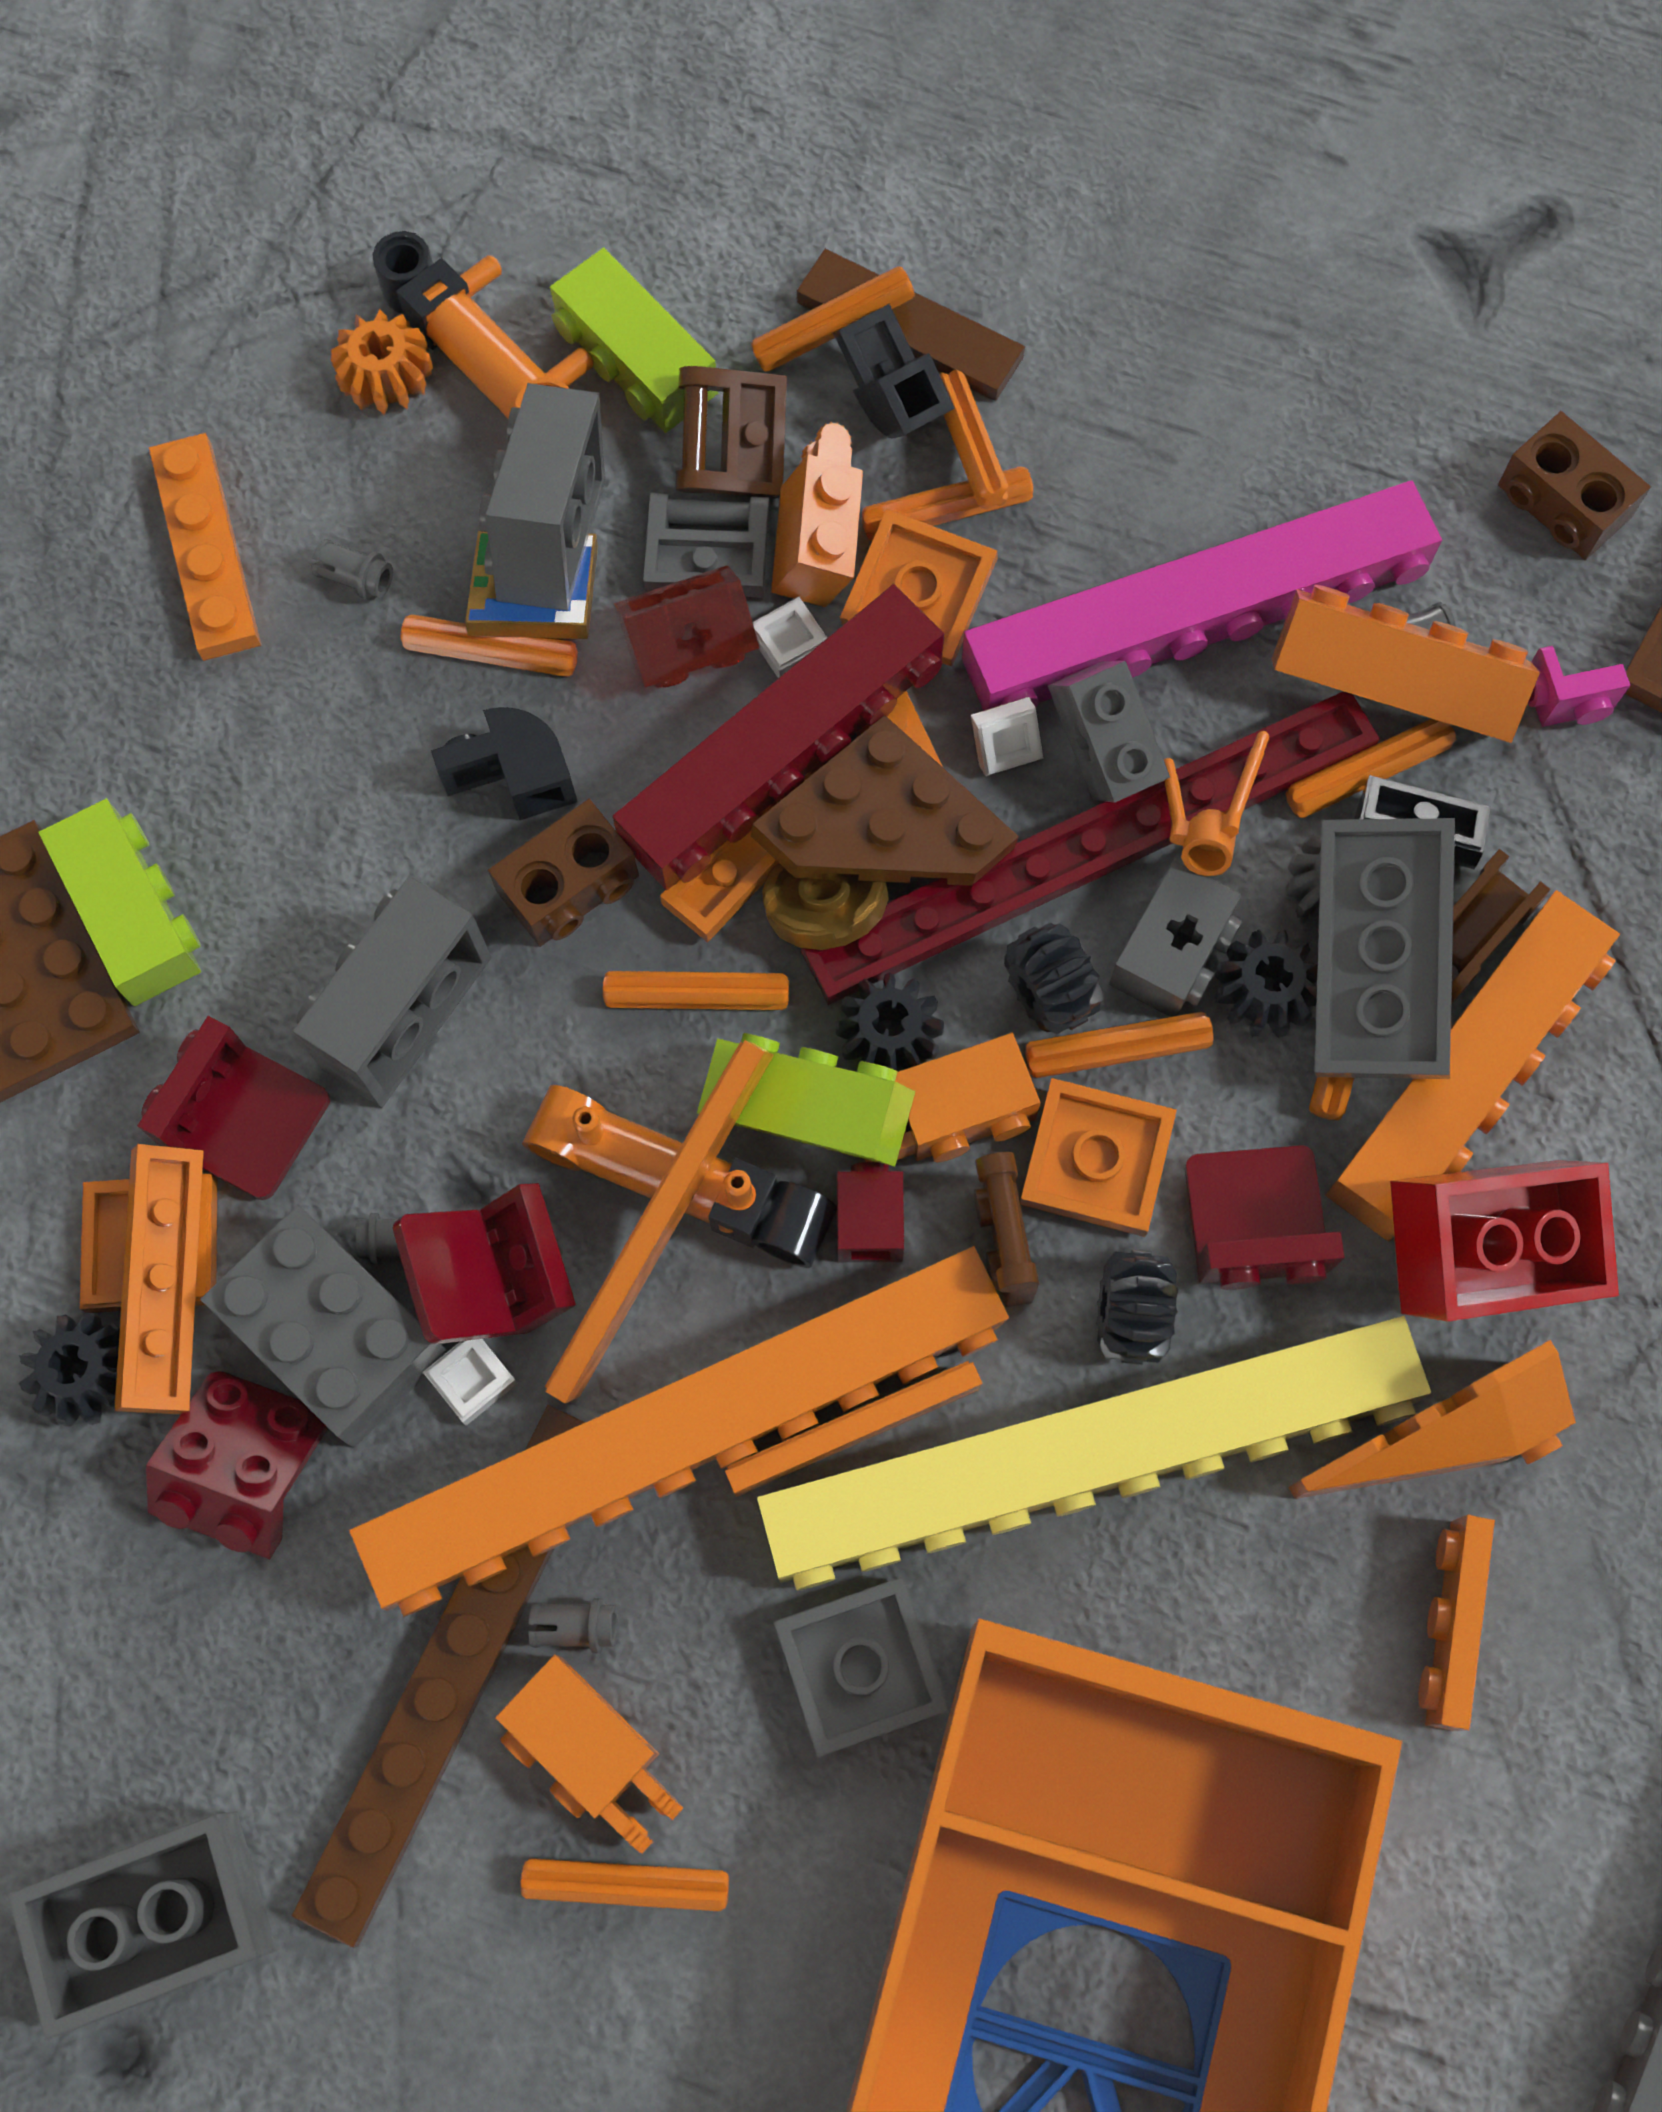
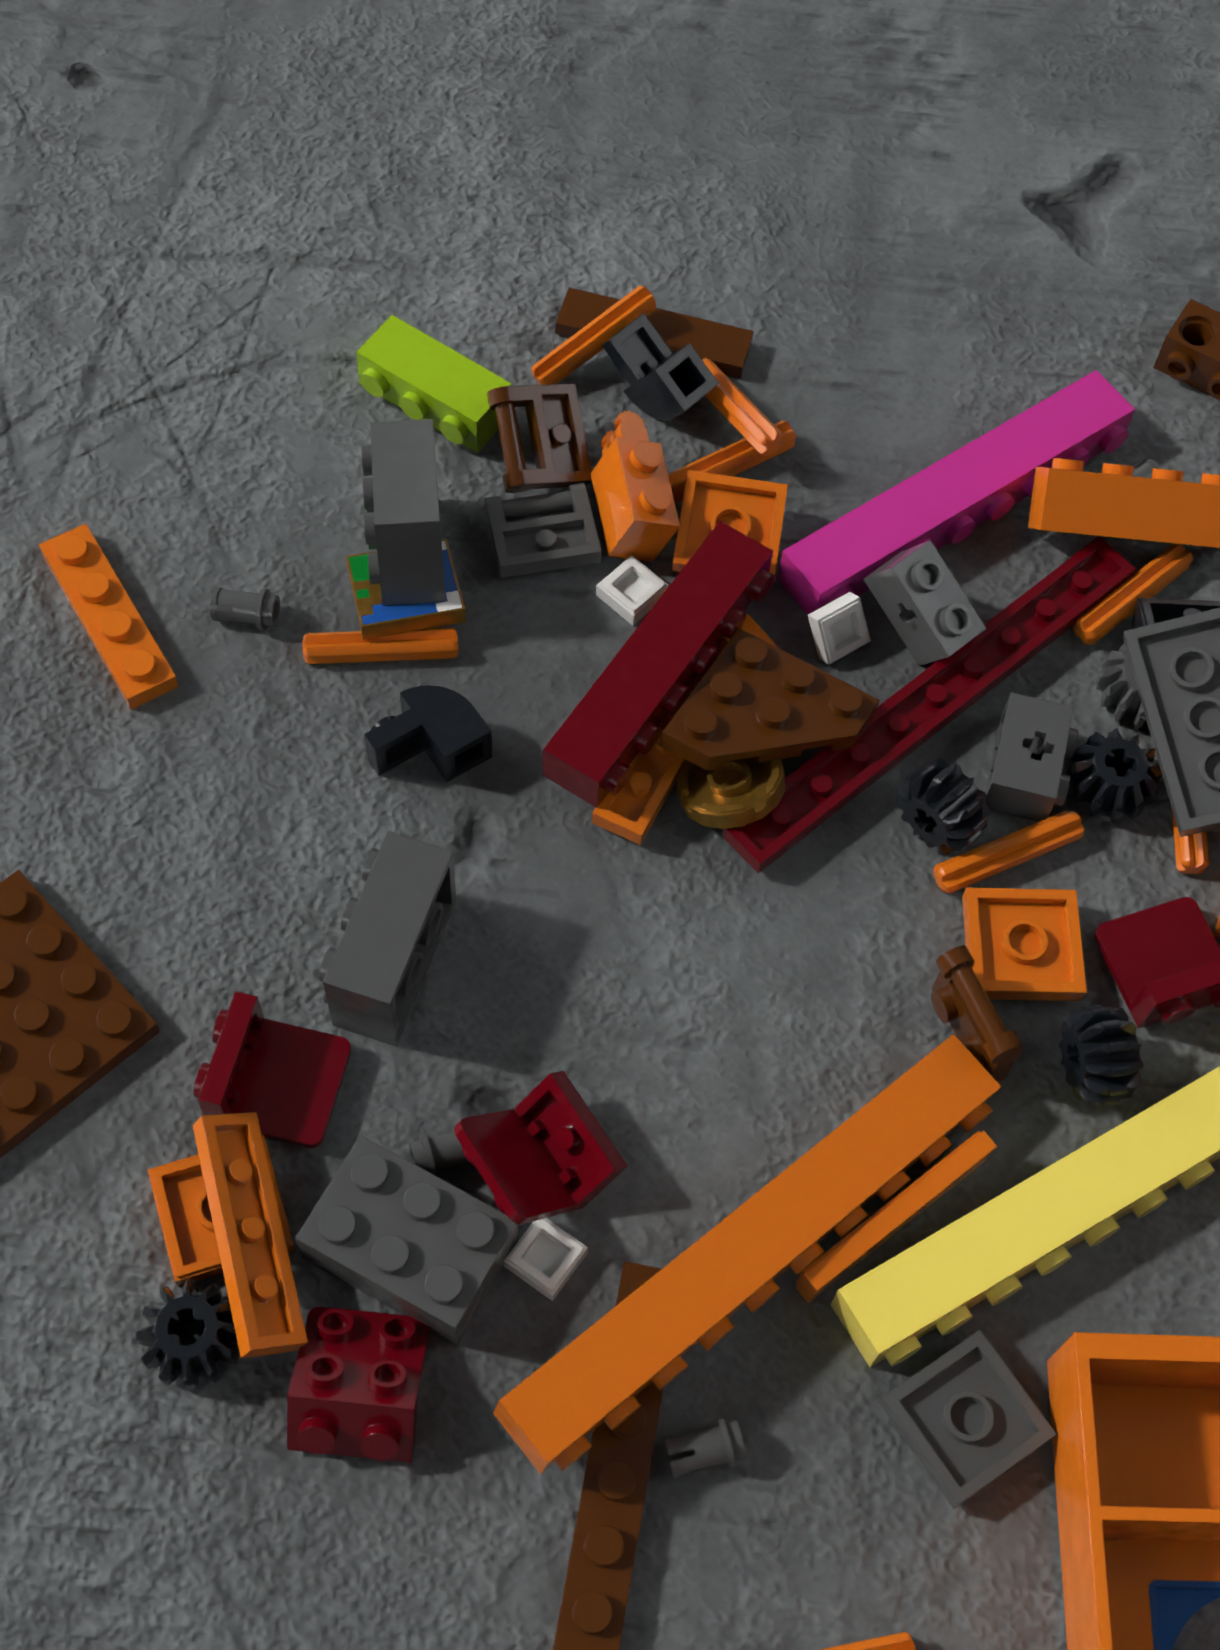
camera: 20 degrees left, 10 degrees down
(122, 901) = (120, 919): lime brick -> none
(381, 362) = (224, 439): orange gear -> none
(442, 309) = (263, 390): orange piece -> none
(553, 862) = (493, 807): reddish brown brick -> none
(584, 1748) = (753, 1554): orange hinge -> none
(656, 623) = (524, 594): clear red brick -> none
(658, 1221) = (683, 1074): orange tile -> none
(696, 990) = (643, 885): orange axle -> none
(732, 1198) = (733, 1047): orange piece -> none
(820, 1103) = (774, 947): lime brick -> none
(870, 1214) = (852, 1034): dark red brick -> none
(892, 1004) = (823, 860): black gear -> none
(968, 1099) = (892, 926): orange hinge -> none
(1211, 834) = (1034, 664): orange plant -> none

